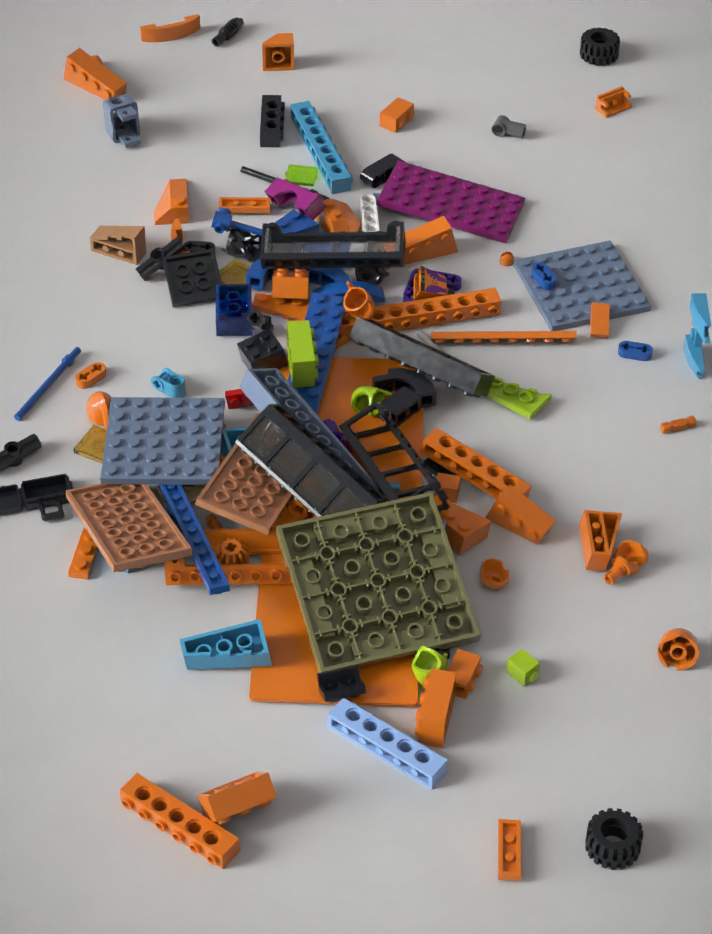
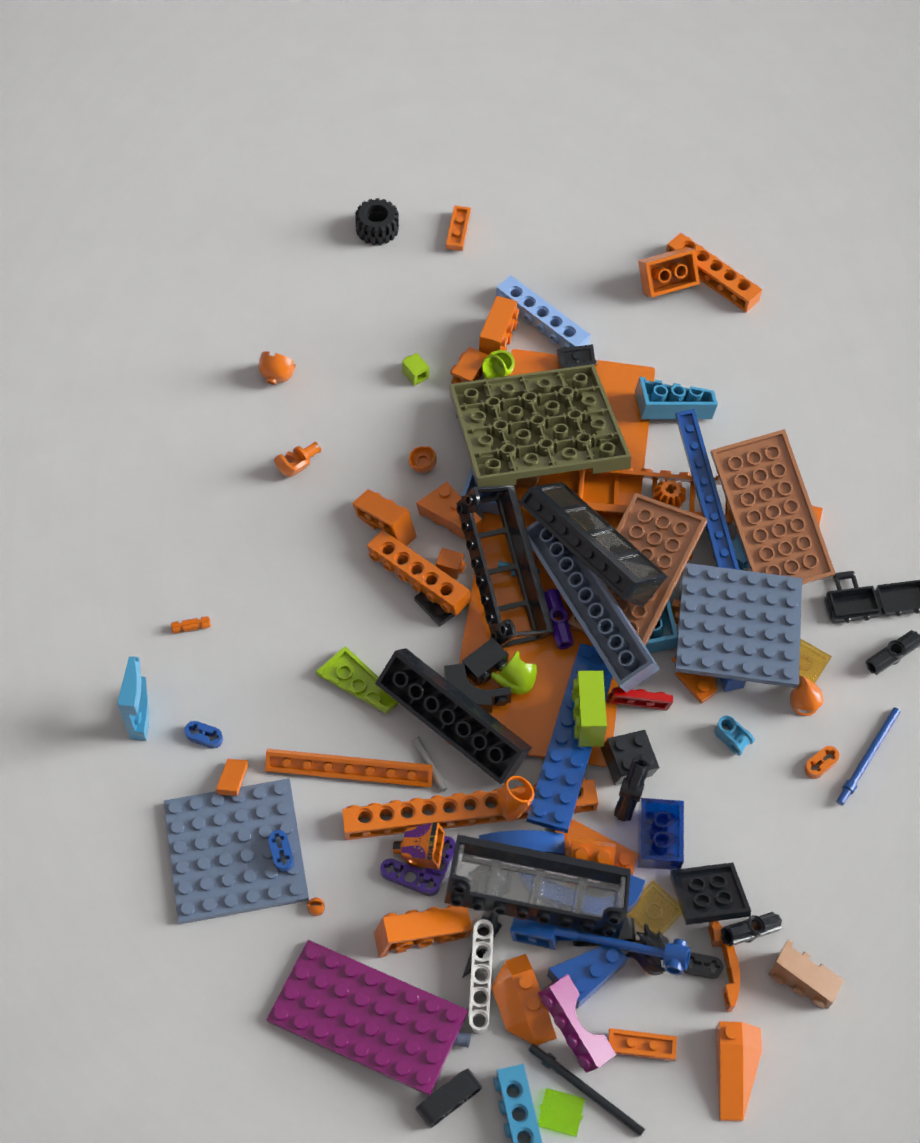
camera: 175 degrees left, 15 degrees up
(598, 537) = (314, 486): orange wedge -> none

